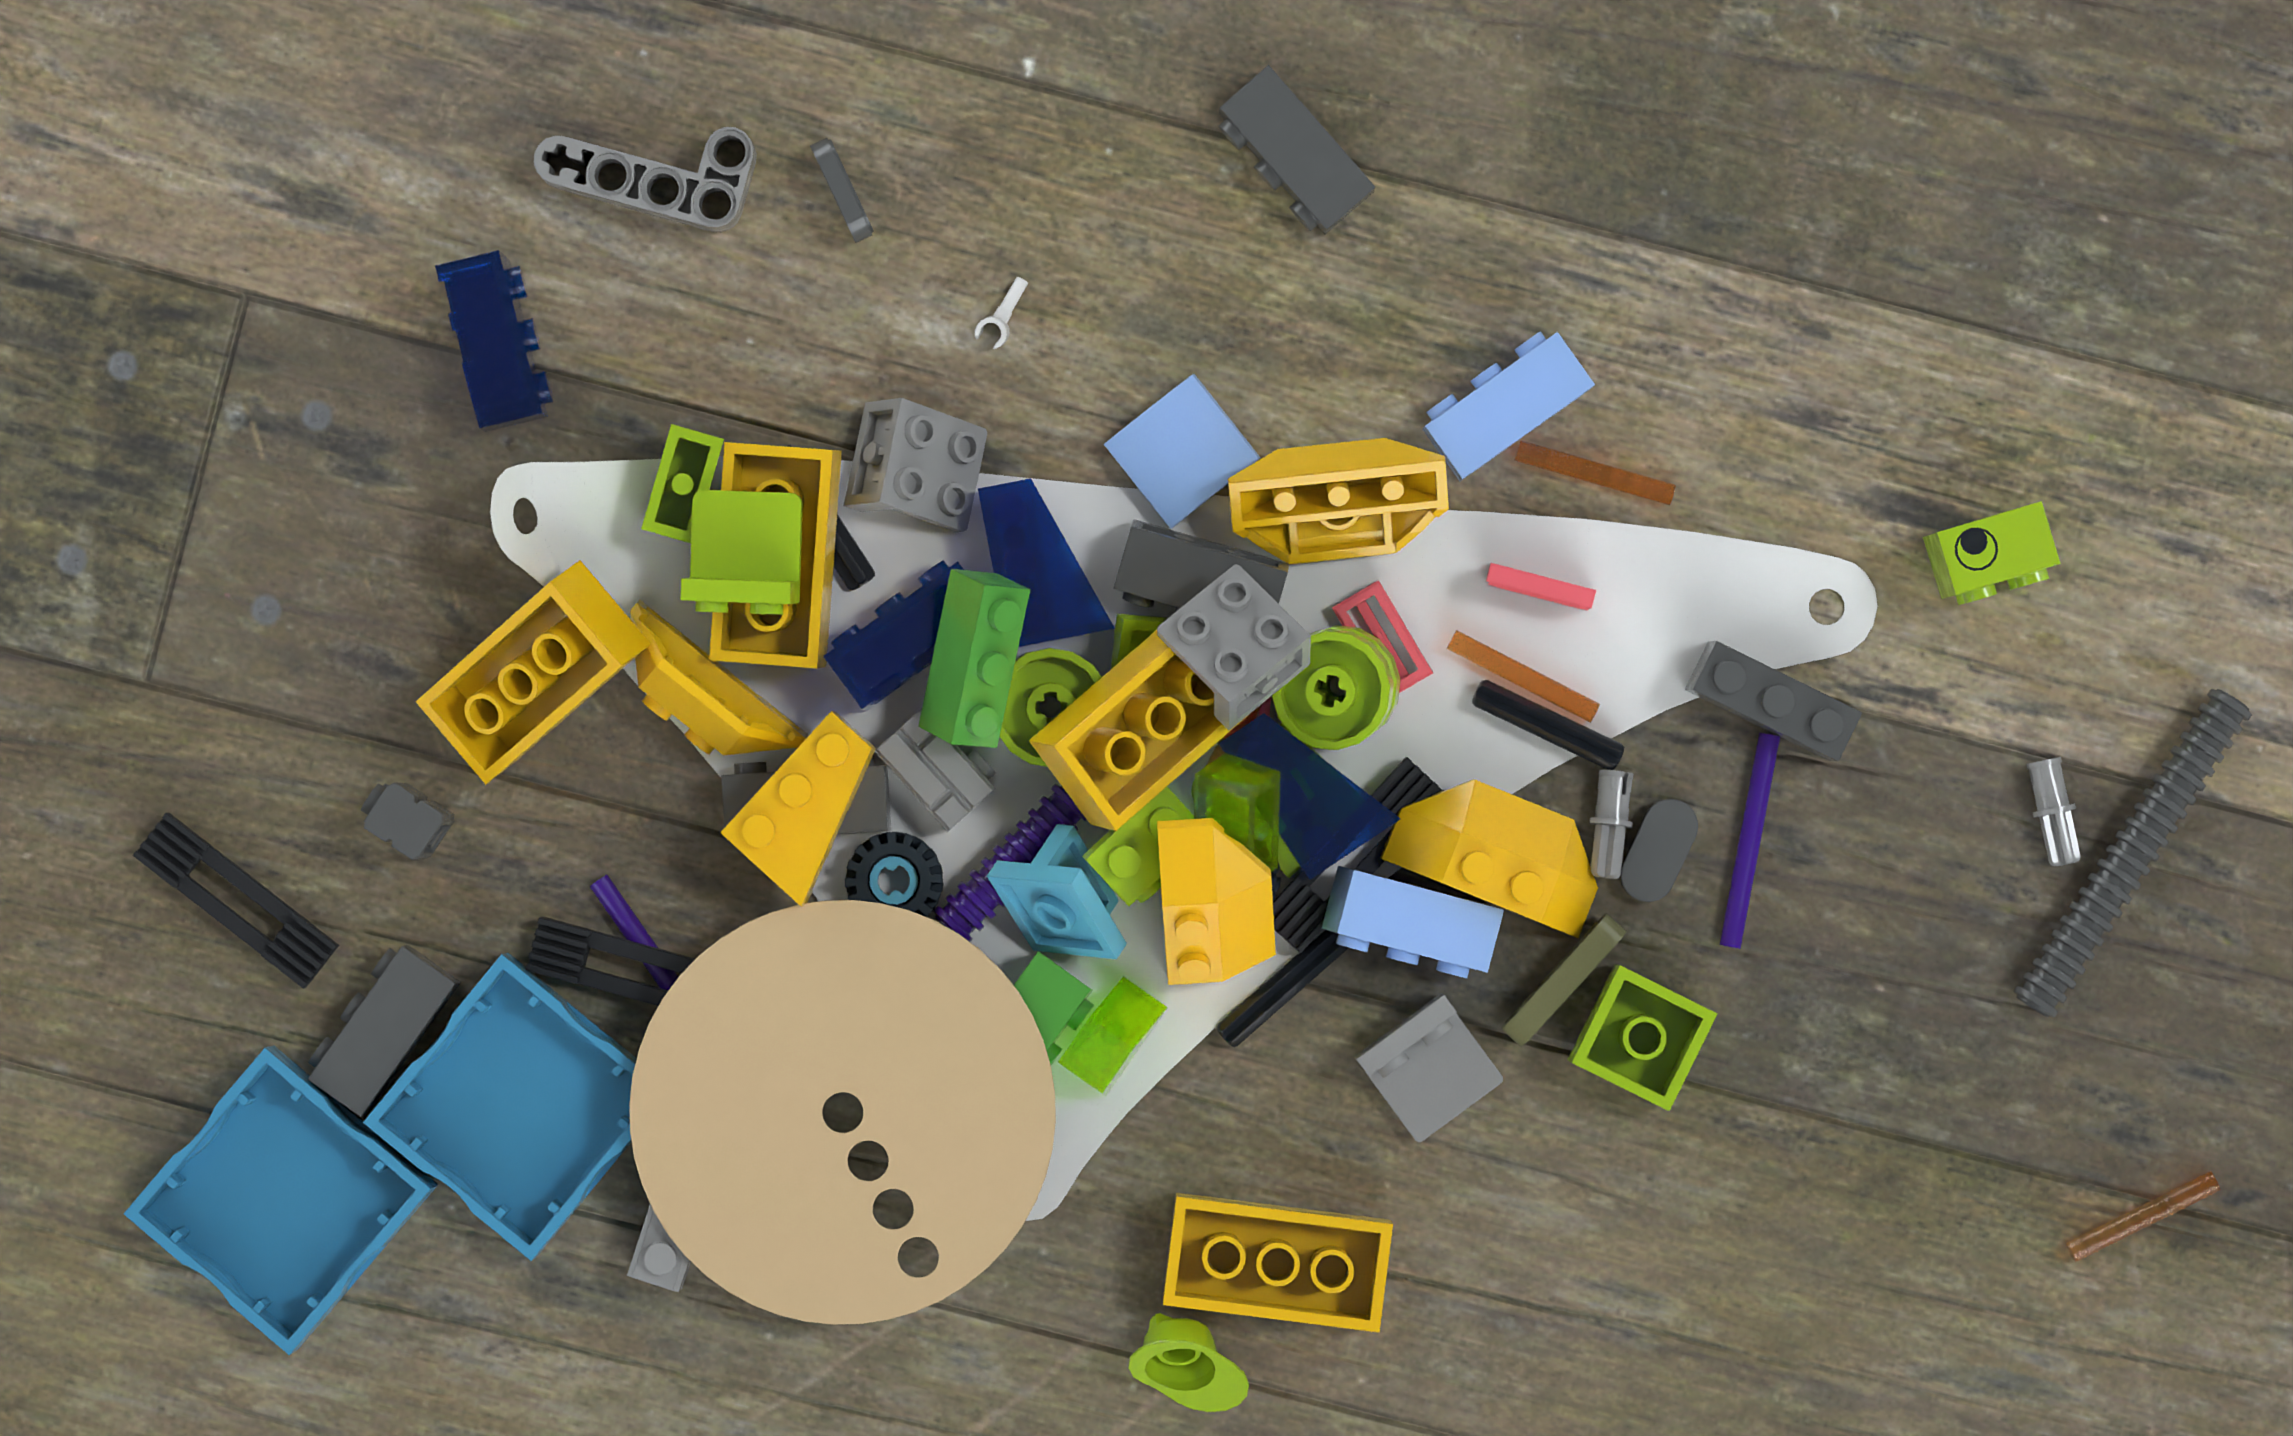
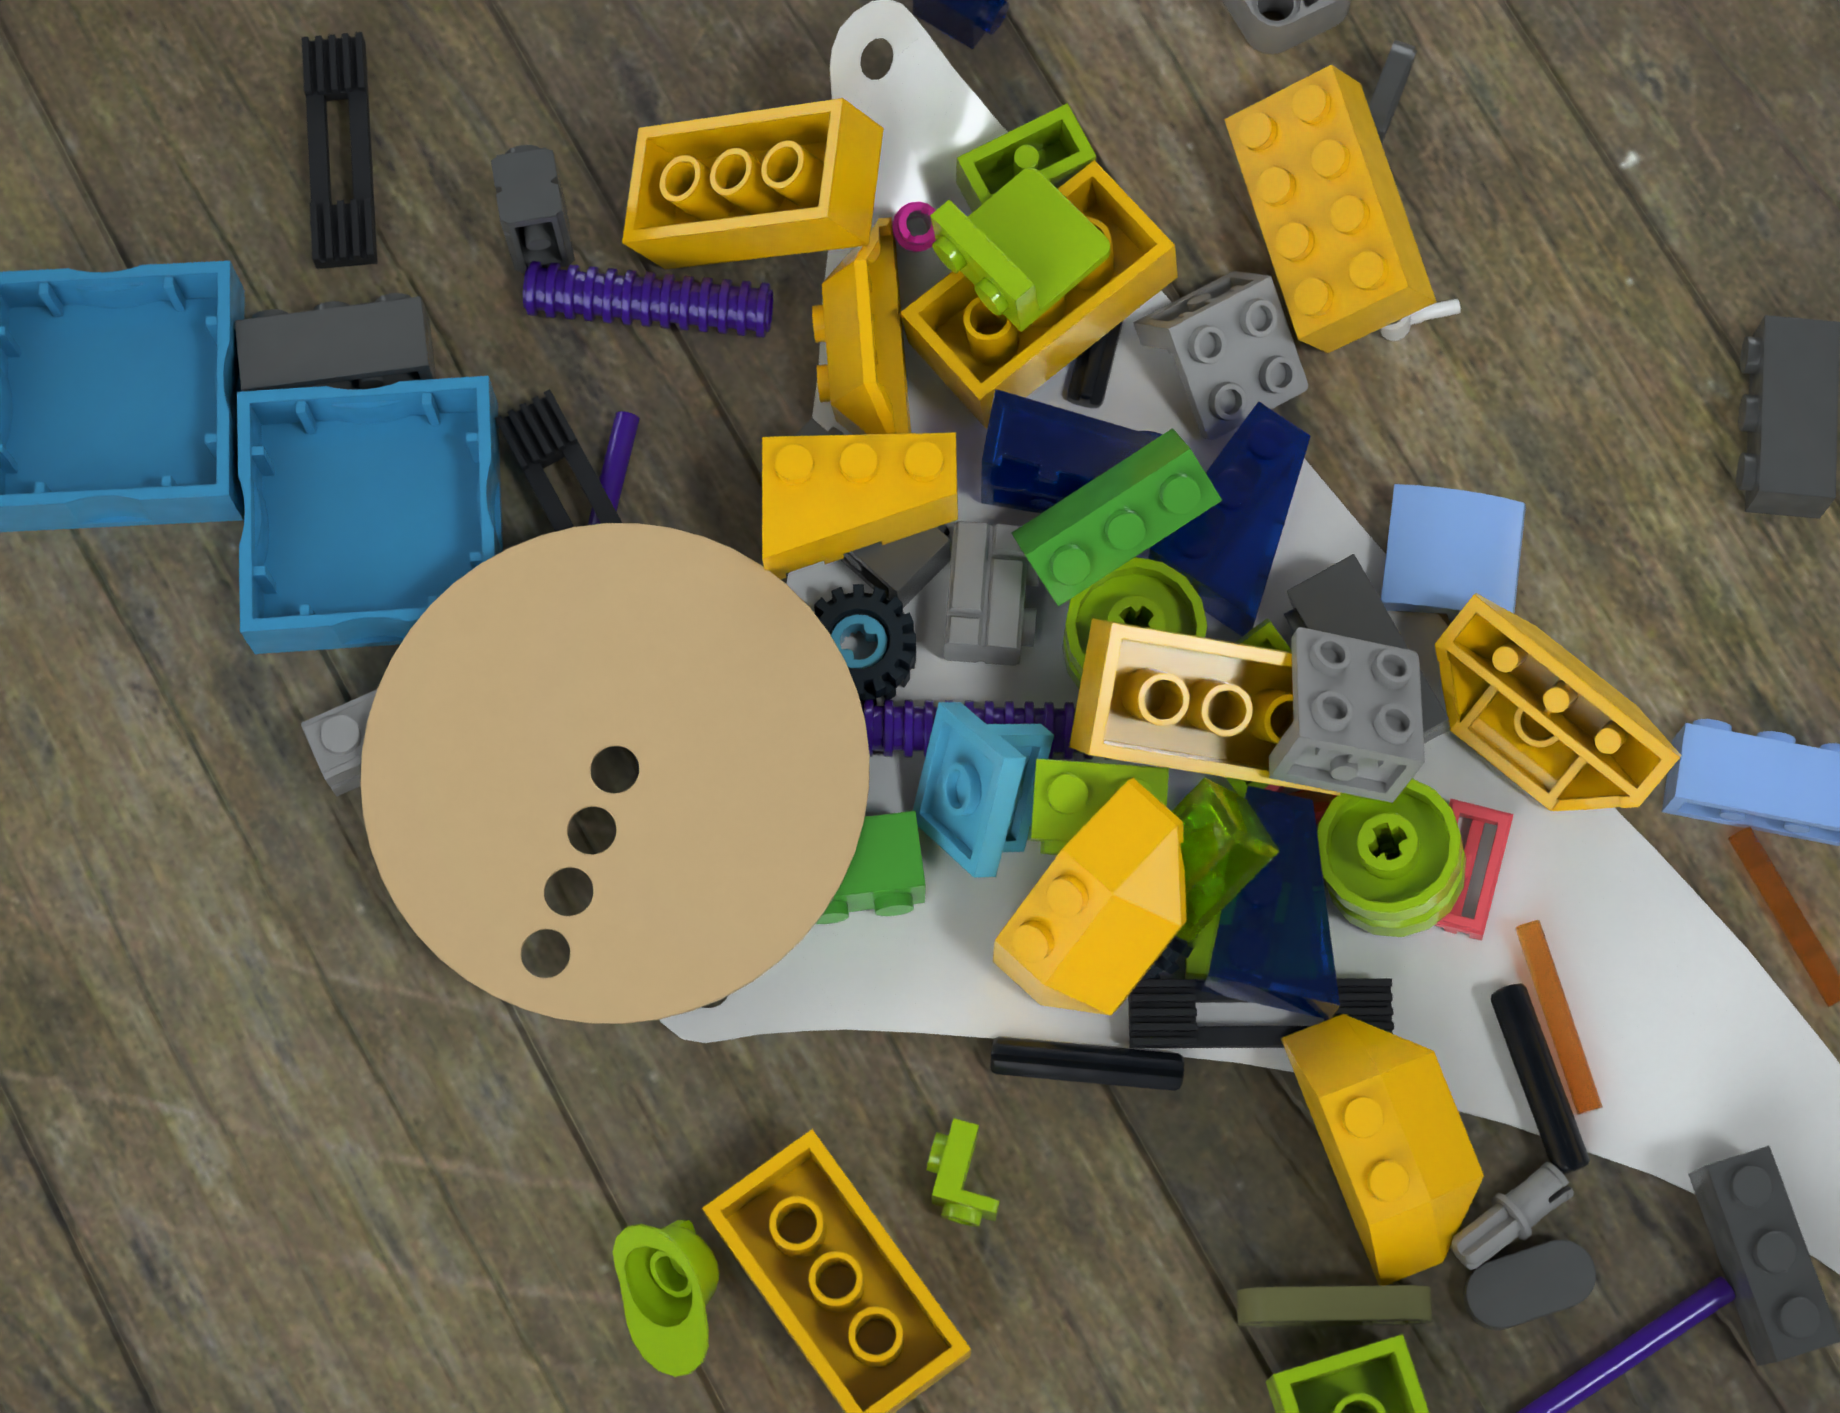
camera: 55 degrees right, 15 degrees down
(532, 796) = (647, 299): none -> dark purple piece
(658, 592) = (902, 234): none -> dark pink pin
(889, 312) = (1329, 210): none -> yellow brick
(1112, 1035) = (899, 949): clear neon green slope -> none
(1266, 1125) = (951, 1160): none -> lime bracket
(1411, 922) = (1255, 1115): light blue brick -> none
(1429, 1068) = (1140, 1257): light grey bracket -> none
(1540, 587) = (1651, 954): coral tile -> none

